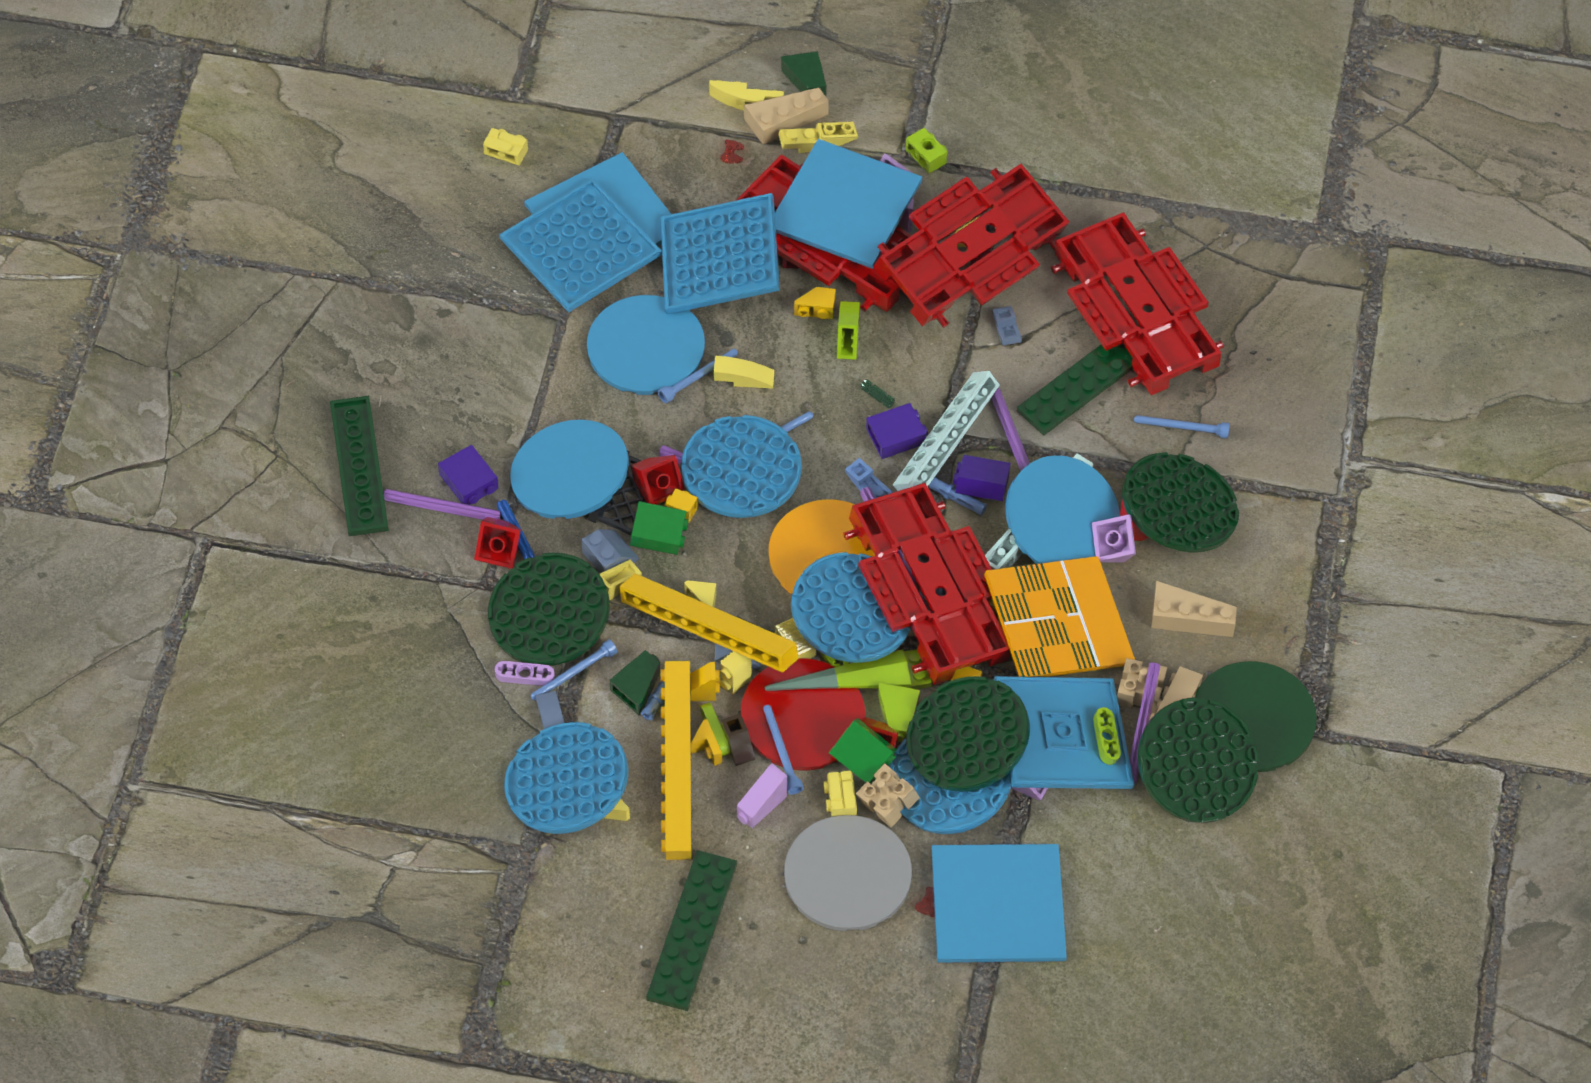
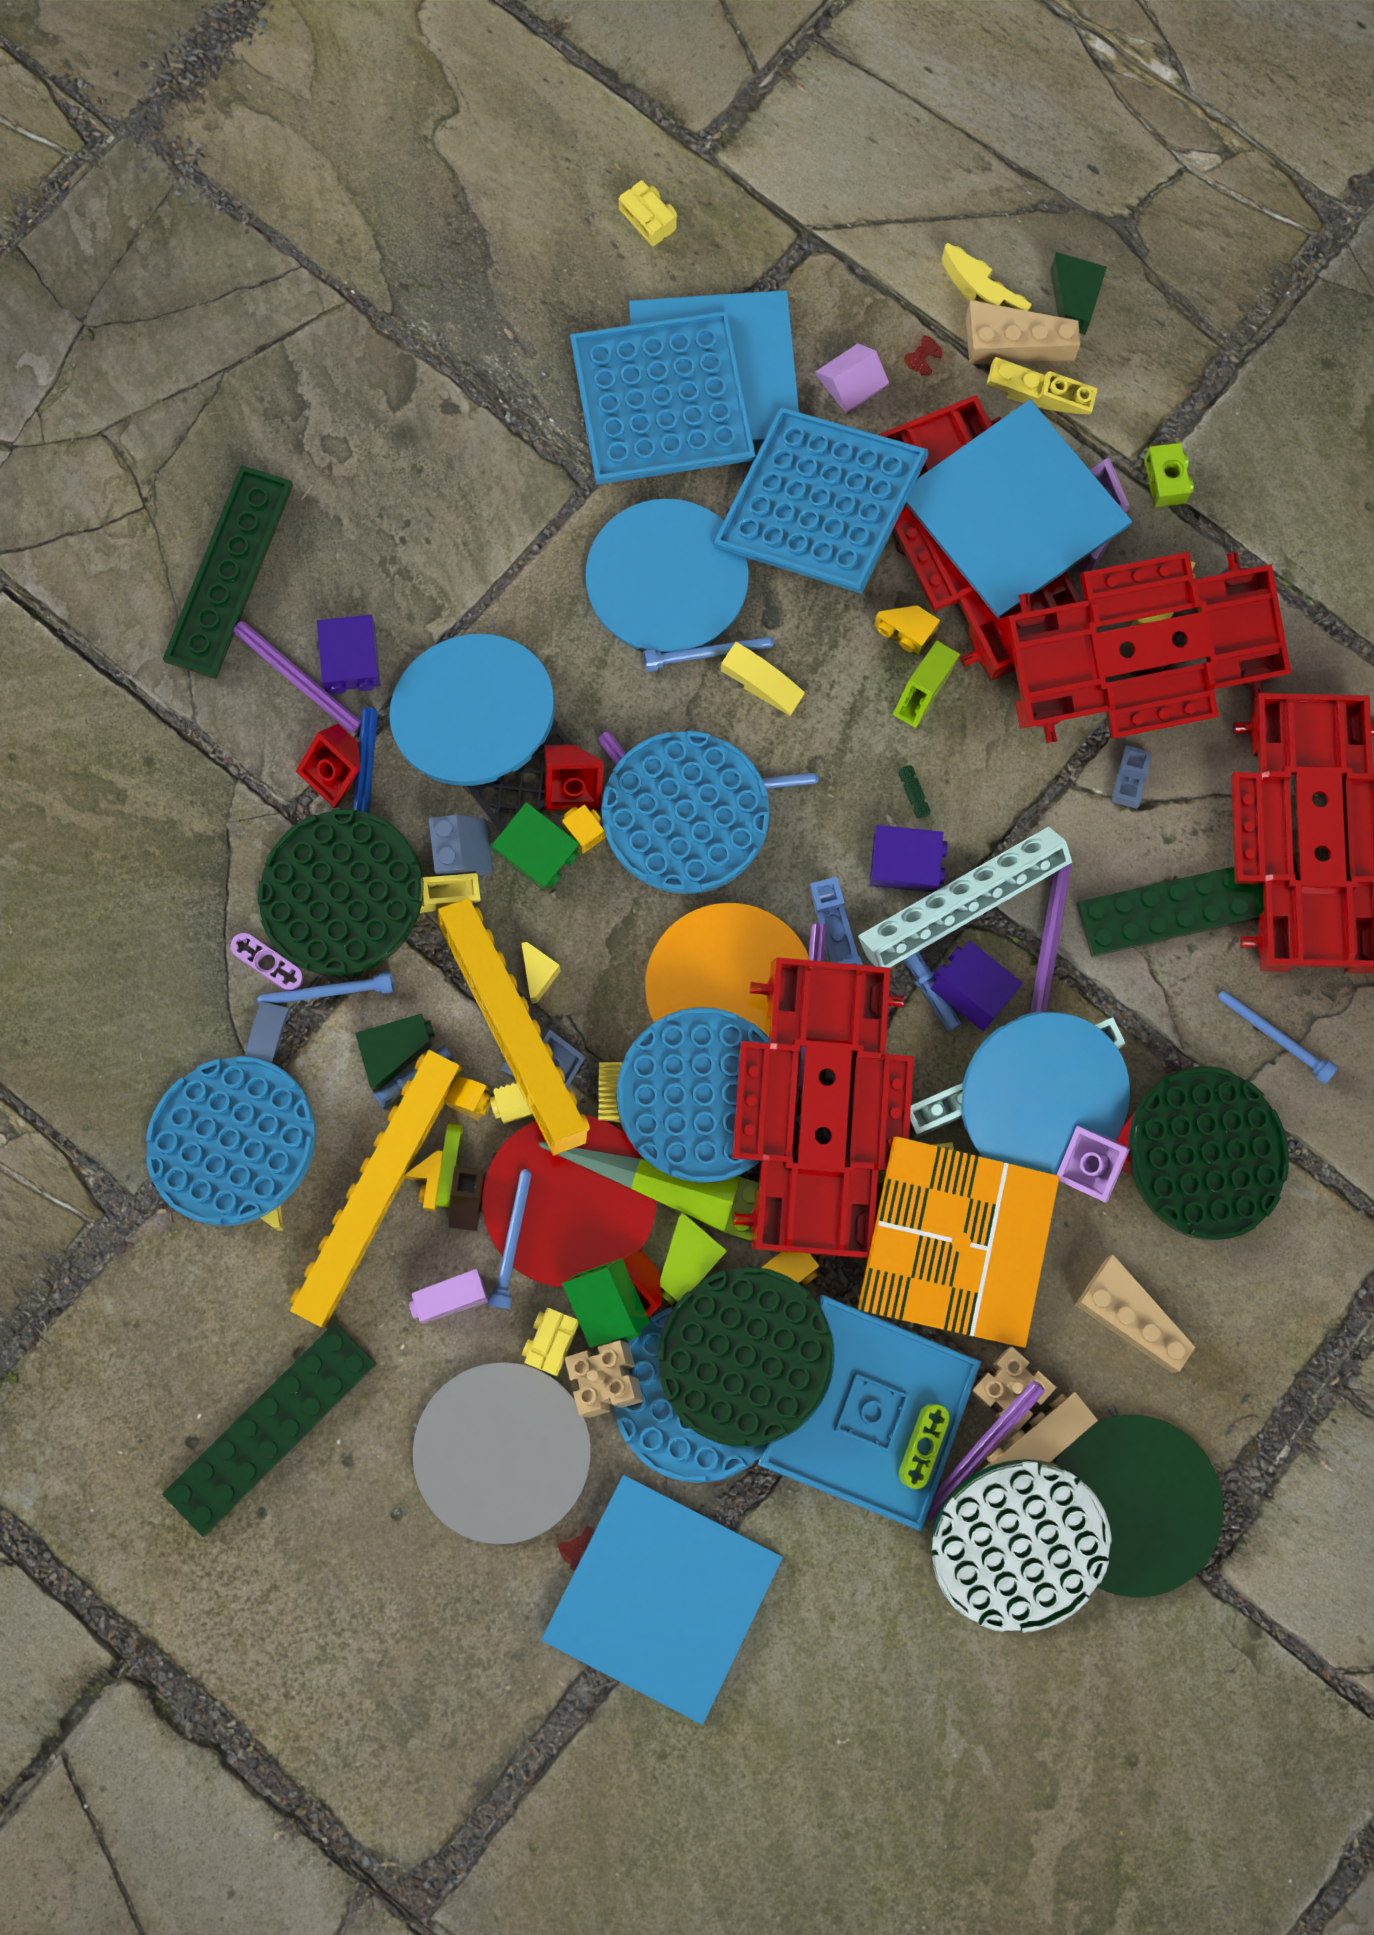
camera: 25 degrees right, 20 degrees up
(695, 182) = (853, 377): none -> lavender slope

